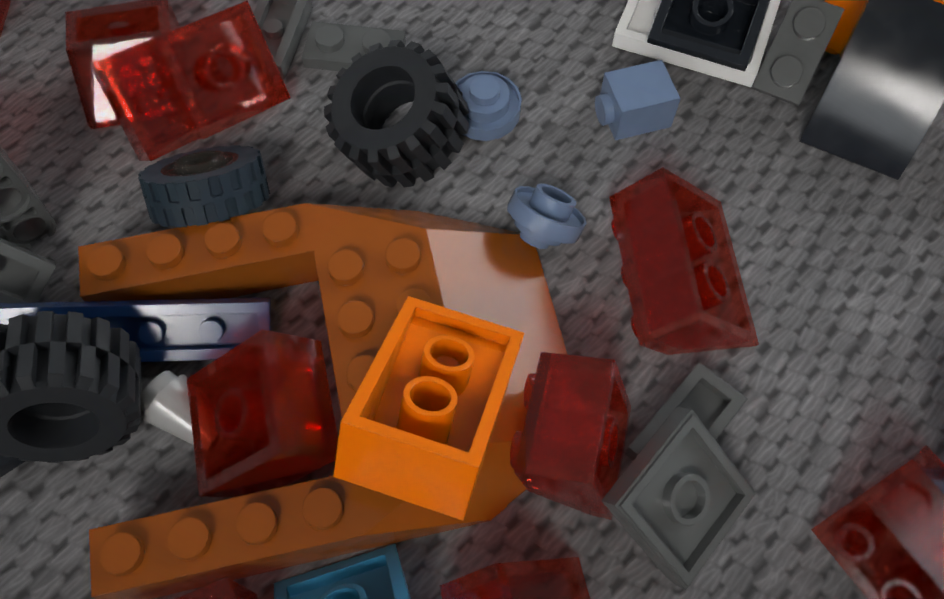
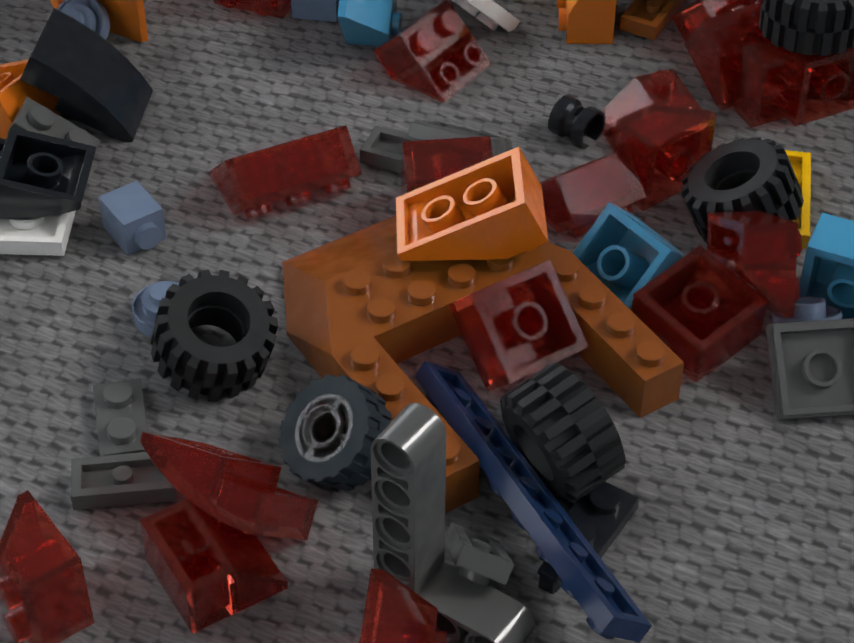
camera: 110 degrees left, 20 degrees down
(545, 216) = (270, 244): sand blue plate -> none

